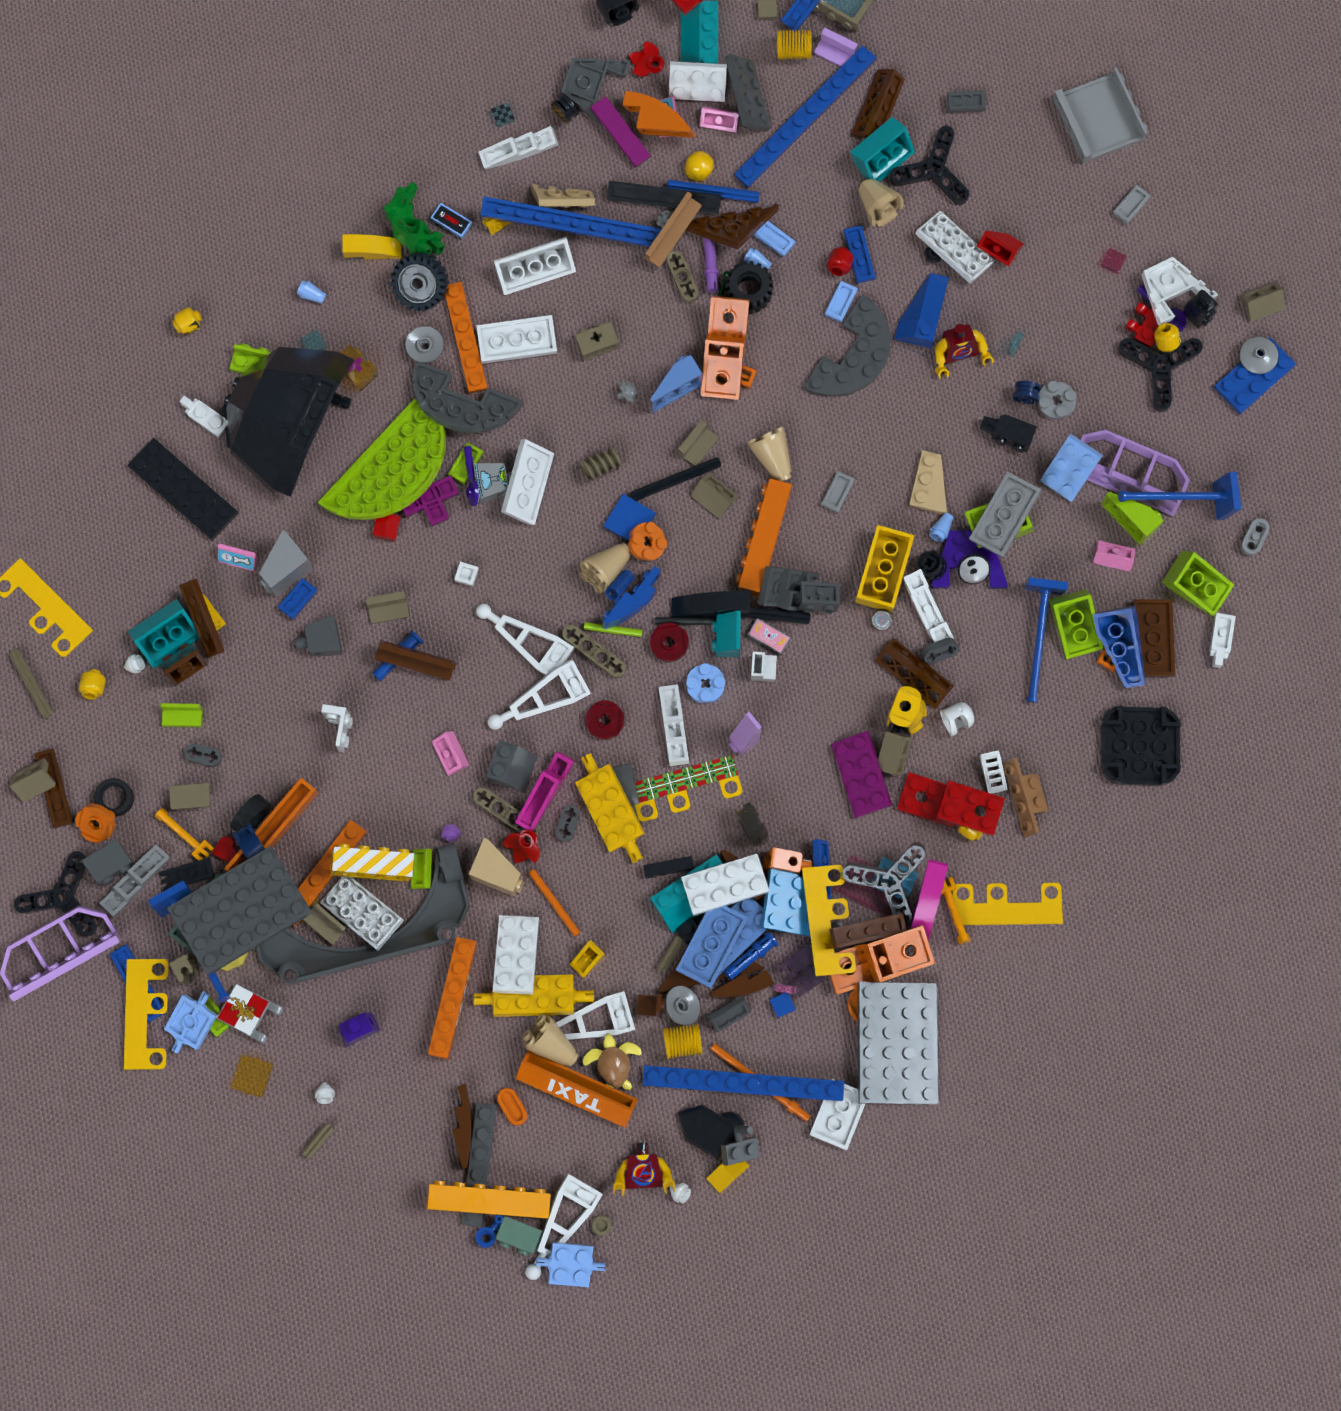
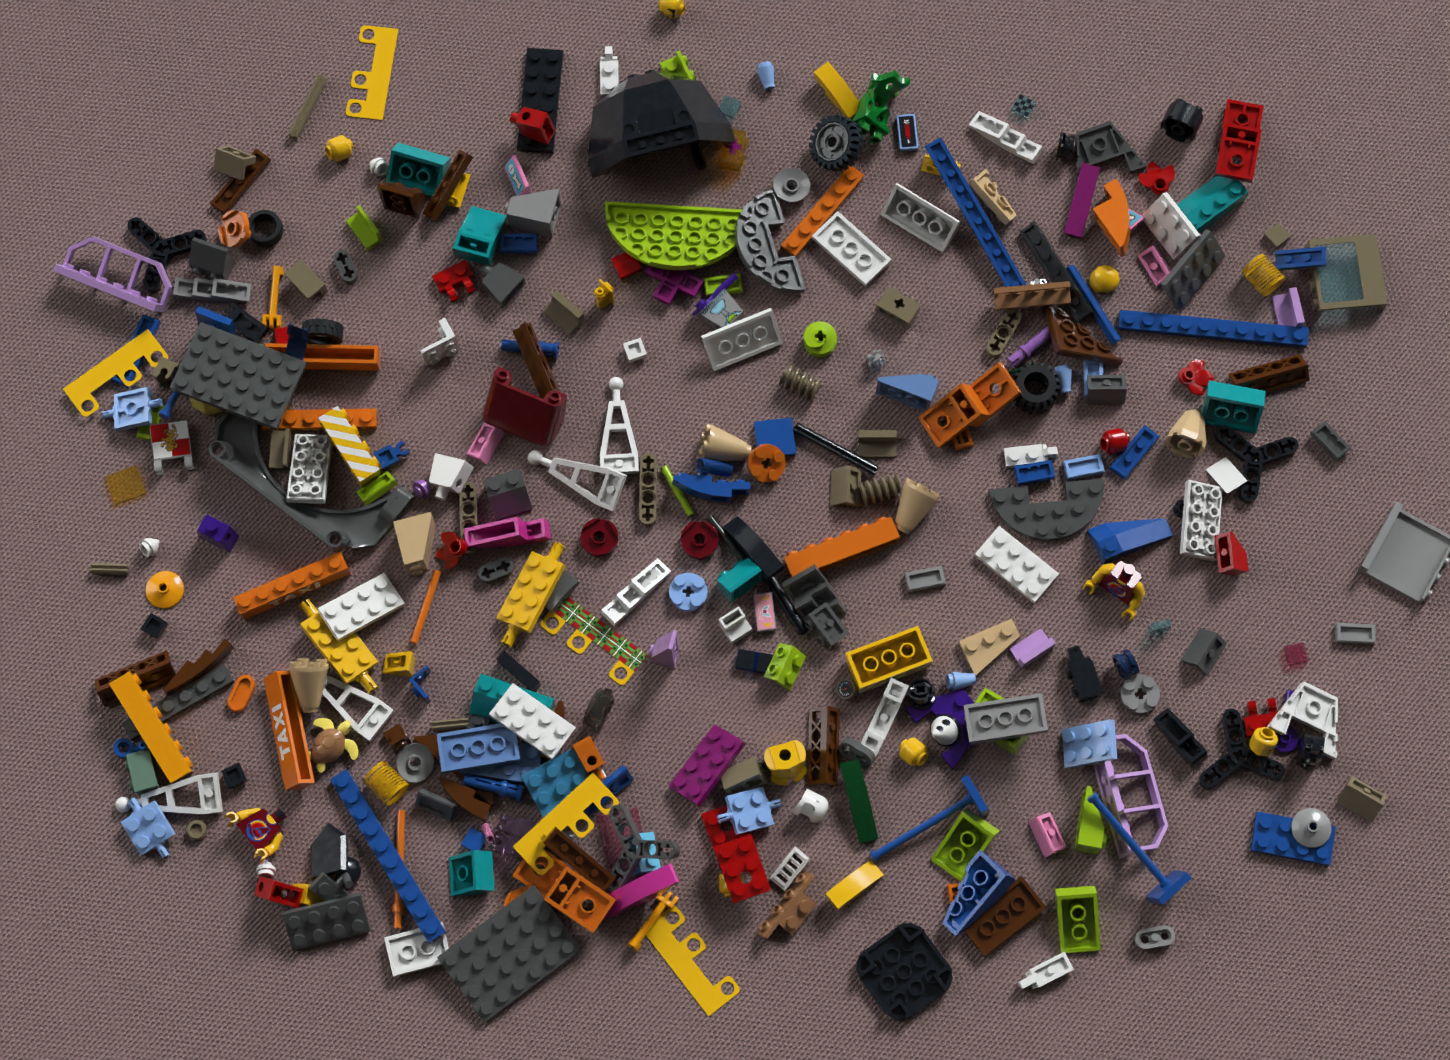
camera: 55 degrees right, 5 degrees down
(205, 508) = (534, 124): none -> red torso
(265, 624) = (479, 235): none -> teal slope
(283, 674) = (452, 277): none -> red plate
(381, 1109) = (168, 597): none -> light orange dish
(398, 1138) = (154, 626): none -> black plate
(401, 560) = (604, 294): none -> yellow hinge
(401, 839) = (389, 456): none -> blue plate
(440, 1170) = (150, 676): none -> reddish brown fence
(451, 703) = (522, 412): none -> dark red windscreen
(458, 801) = (449, 475): none -> white torso
(576, 430) = (812, 343): none -> lime piece
(579, 1161) = (234, 775): none -> black plate
(620, 959) = (415, 679): none -> blue bracket
(701, 1199) = (272, 889): none -> red torso
(737, 469) = (880, 489): none -> dark tan piece
(761, 1172) = (326, 921): none -> dark grey plate
(792, 234) = (1106, 389): none -> dark grey panel
(798, 335) = (1028, 454): none -> white hinge
(804, 674) = (752, 661): none -> black tile
(808, 1026) = (471, 873): none -> teal slope
(817, 342) = (1034, 472): none -> blue plate
(826, 653) = (785, 665): none -> lime bracket
(836, 159) = (1198, 377): none -> red plate
(880, 413) = (1016, 564): none -> white plate
(924, 768) = (749, 810): none -> light blue plate
(932, 199) = (1226, 475): none -> white sticker
(957, 453) = (1032, 648): none -> lavender panel
(972, 606) = (913, 752): none -> yellow head
(980, 678) = (859, 801): none -> dark green slope
(1044, 732) = (854, 885): none -> yellow slope
(1059, 326) = (1204, 650): none -> dark grey panel
(1115, 397) = (1181, 738): none -> black slope

